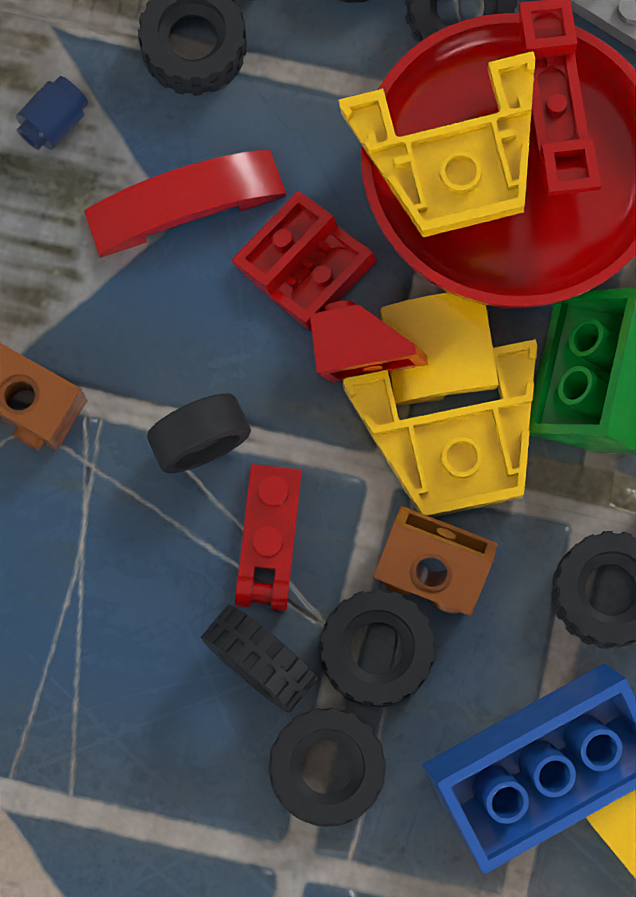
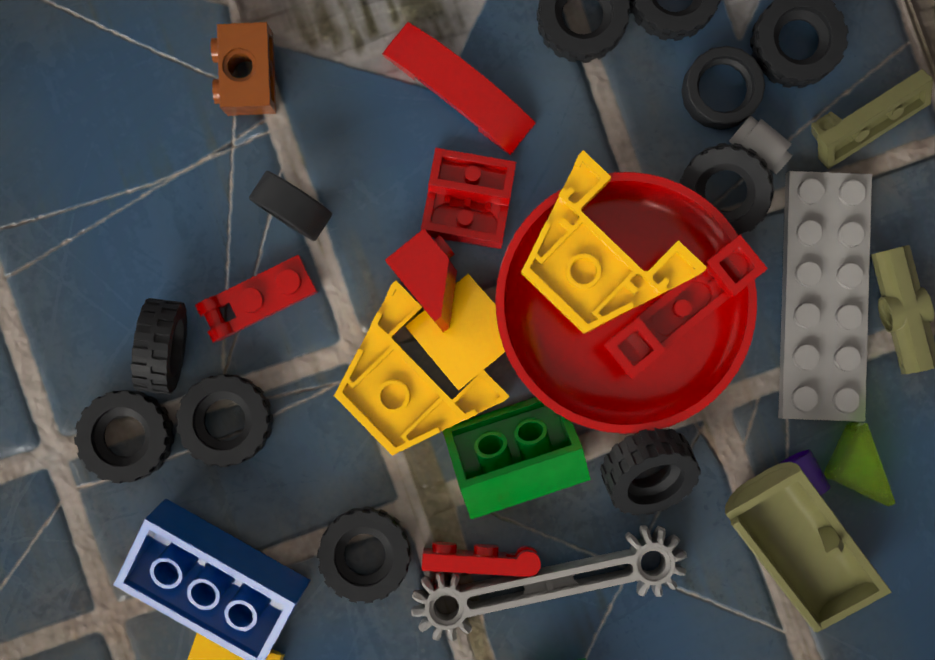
camera: 55 degrees right, 10 degrees up
(422, 537) = (306, 423): dark orange brick -> none

